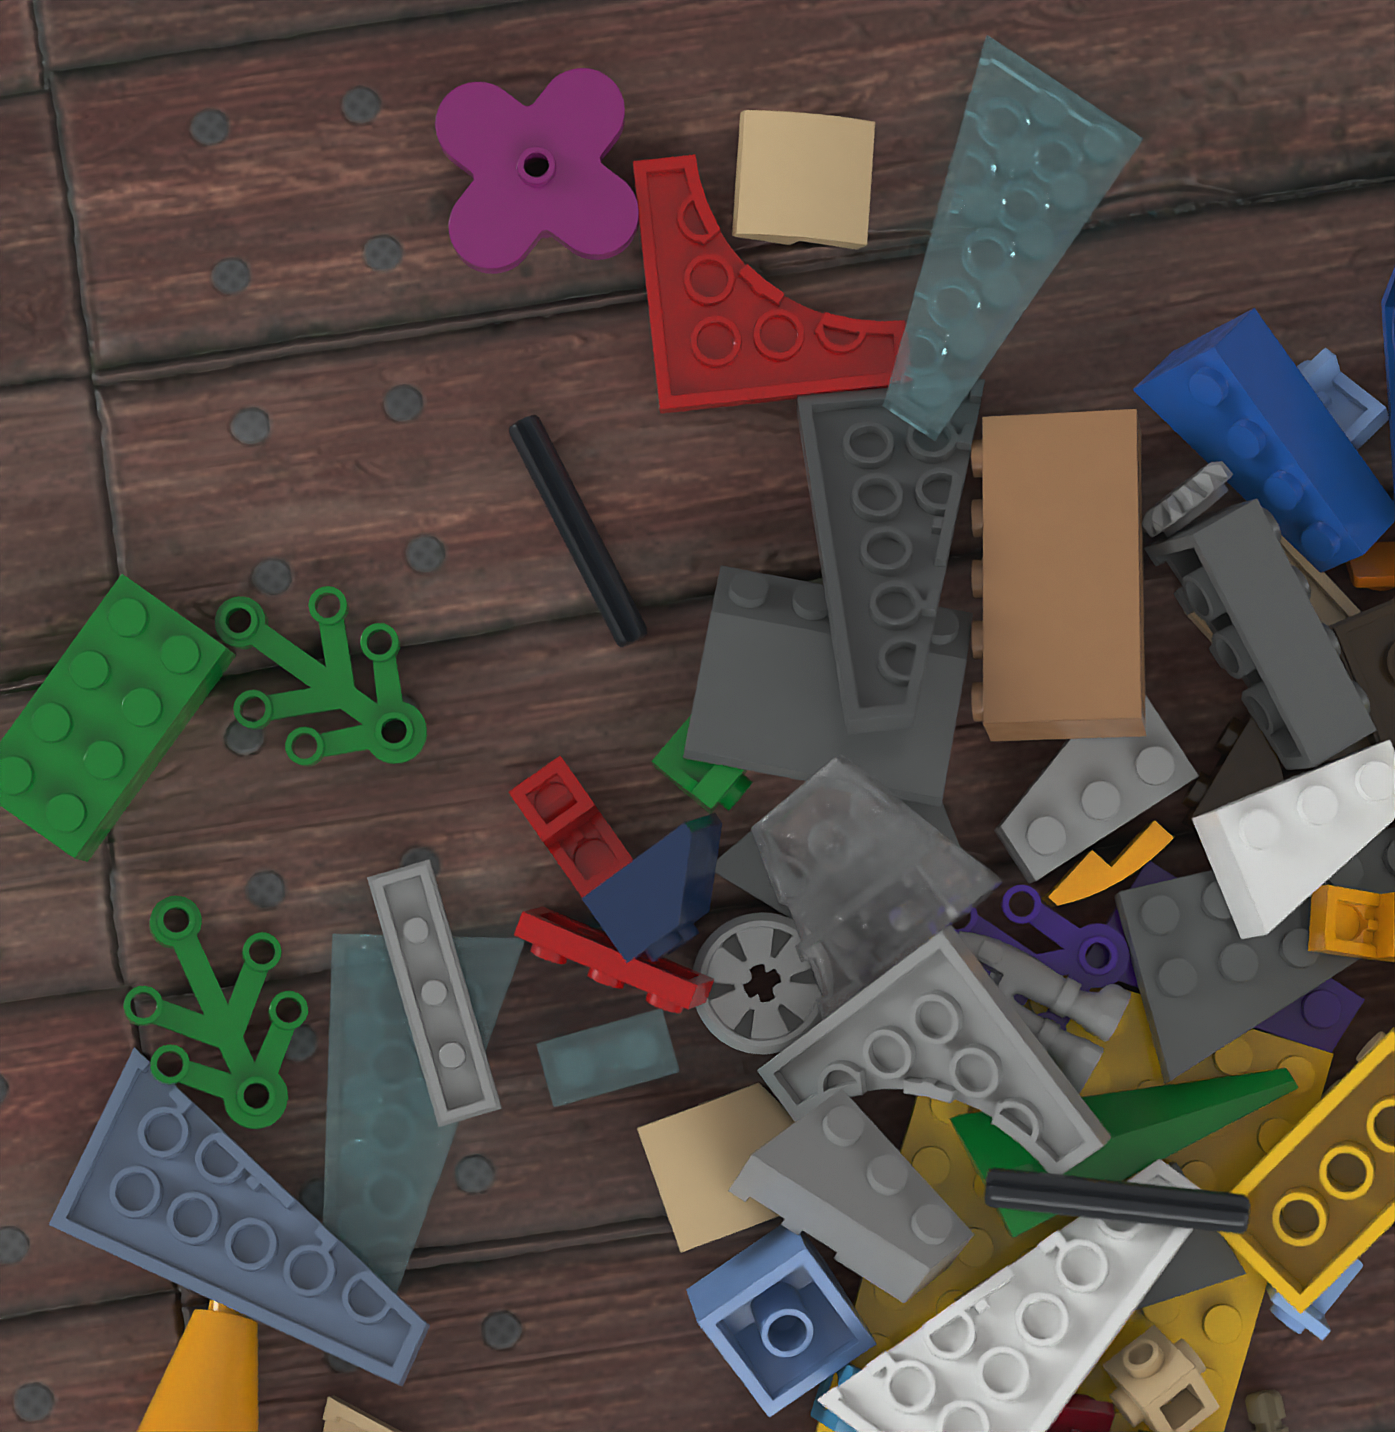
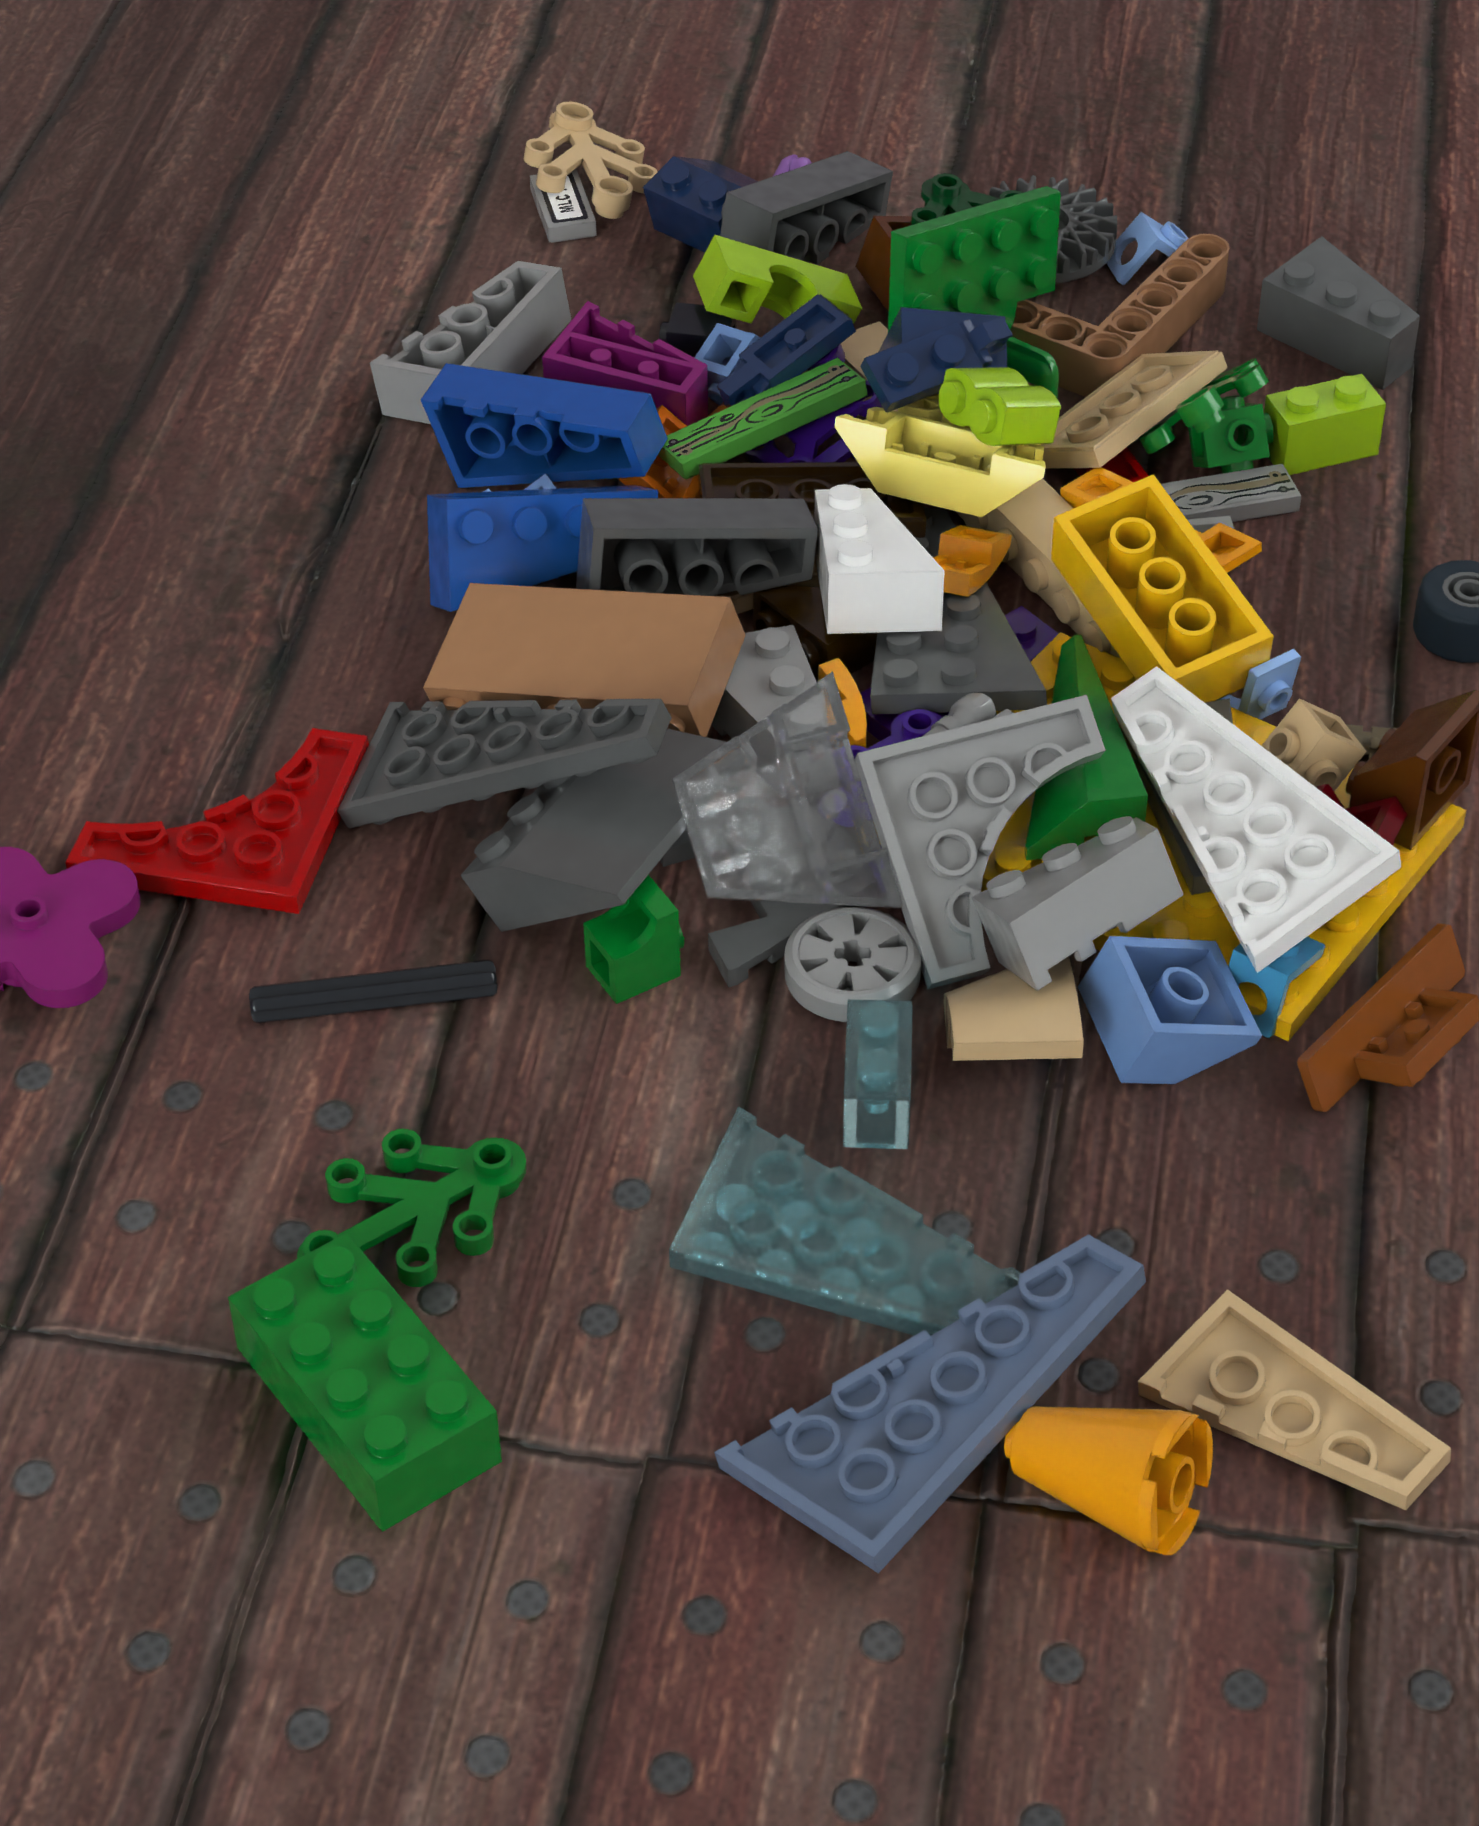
camera: 70 degrees left, 40 degrees down
(221, 1022) = (789, 1366): green plant -> none
(434, 993) = (762, 1177): light grey tile -> none
(562, 938) = (785, 1038): red plate -> none
(570, 826) = (634, 1069): red slope -> none
(661, 892) = (738, 972): dark blue slope -> none
(803, 178) = (150, 769): tan slope -> none
(1011, 205) = (262, 645): clear light blue wing -> none
(1117, 1200) = (1136, 713): black axle -> none
(1187, 500) = (558, 566): light grey gear -> none

